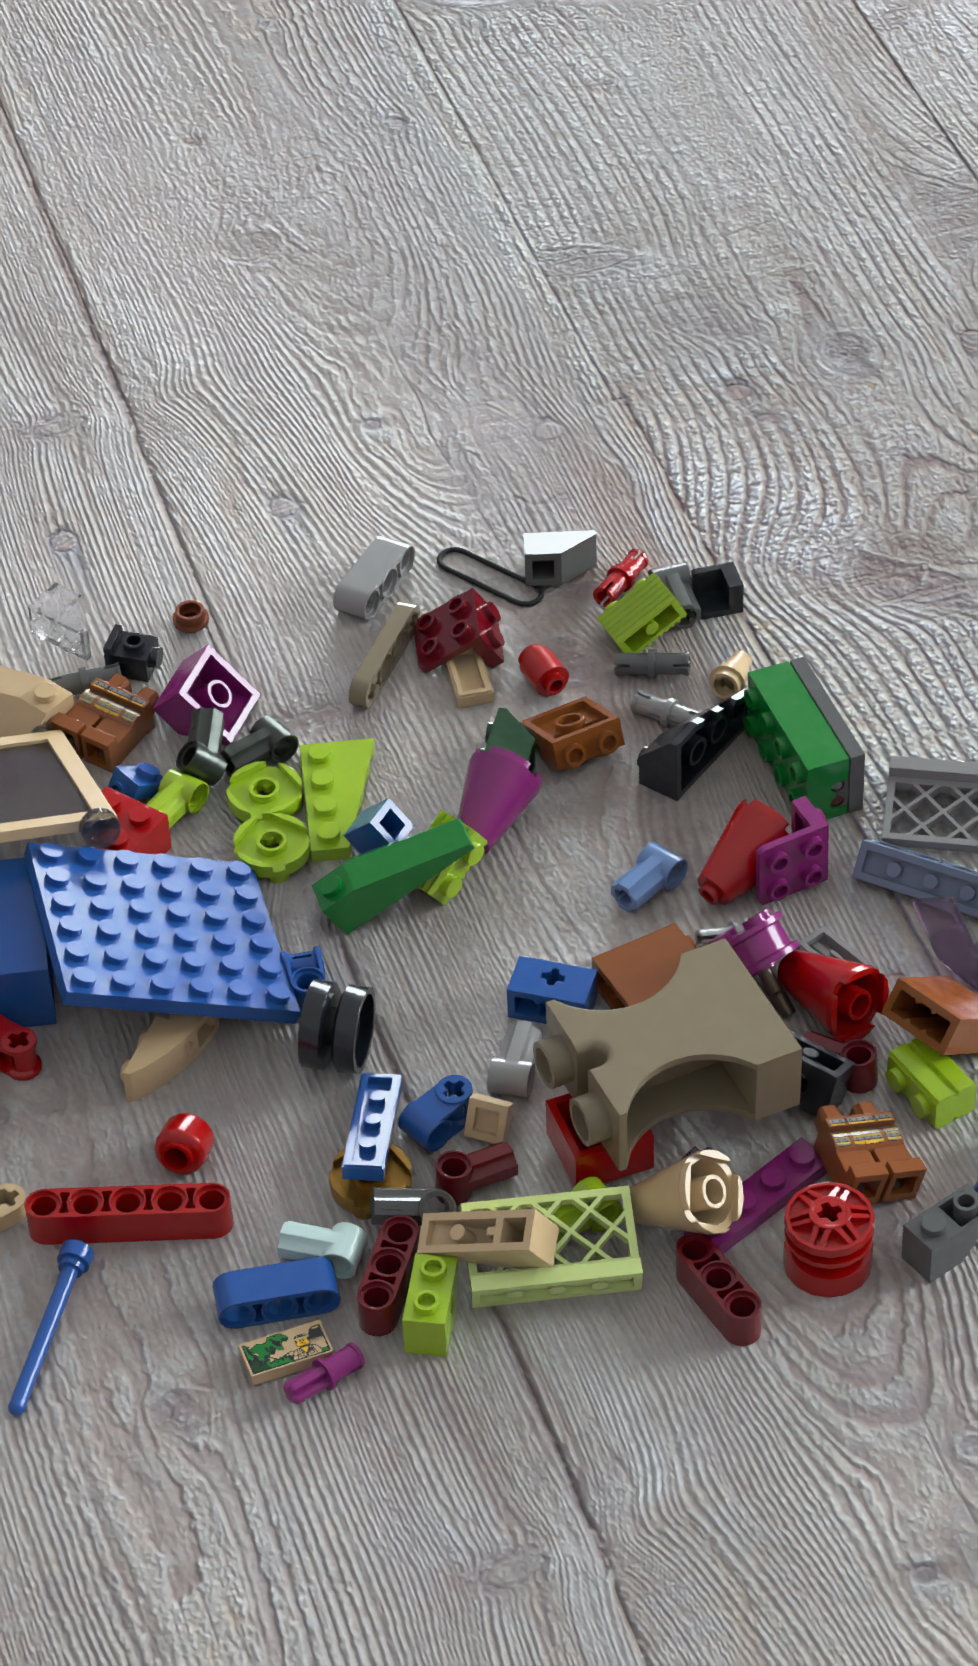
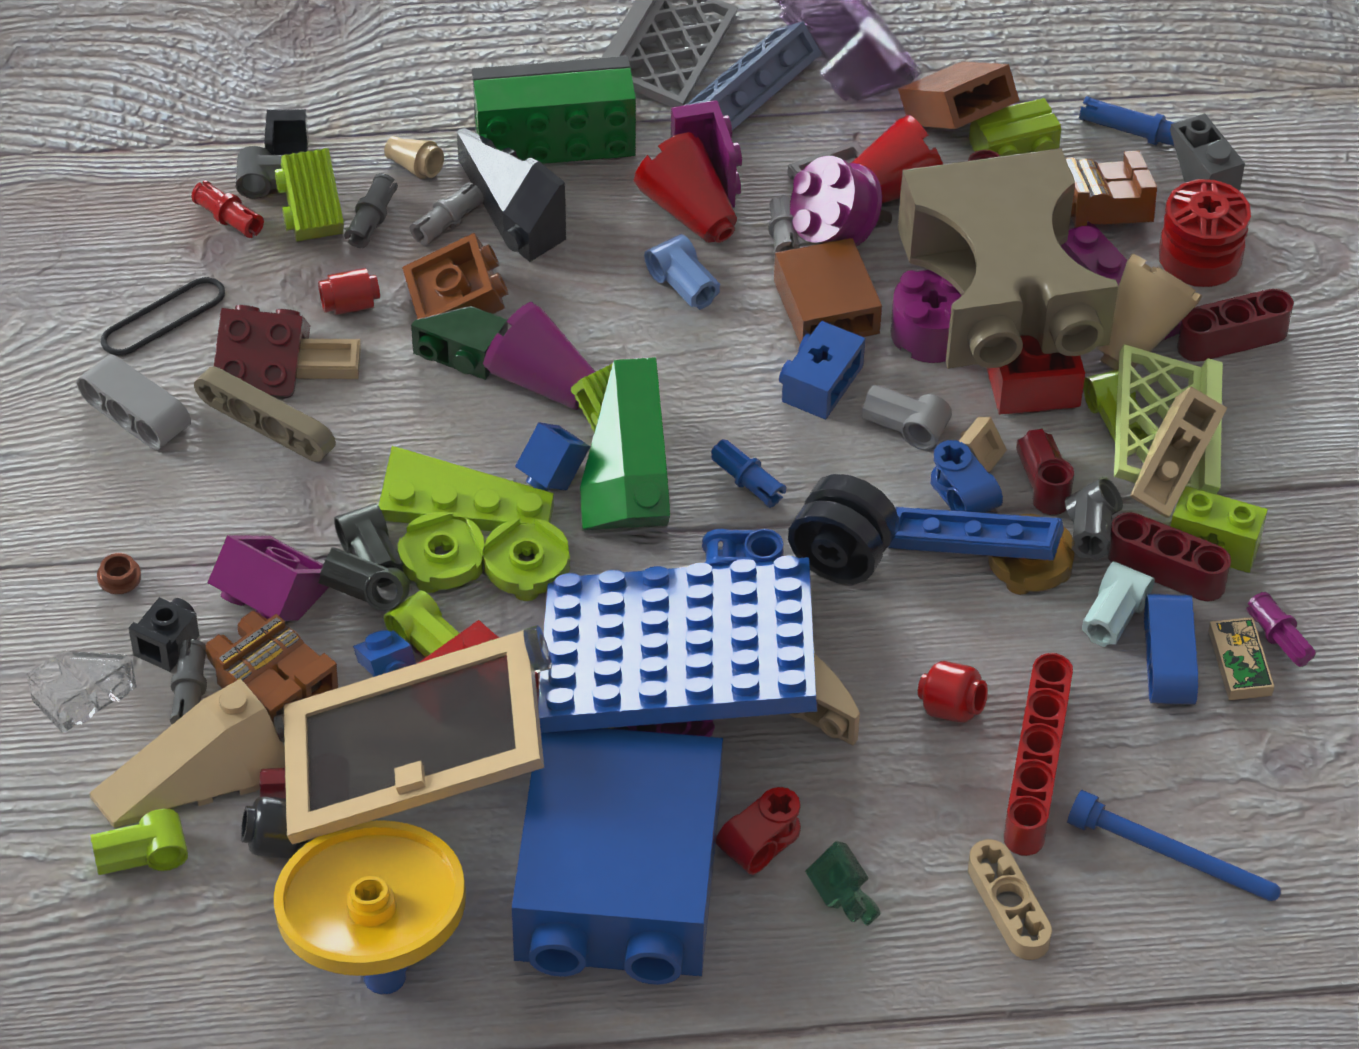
camera: 80 degrees left, 5 degrees up
(410, 967) = (748, 473): none -> blue axle
(558, 556) = (176, 250): dark grey slope -> none

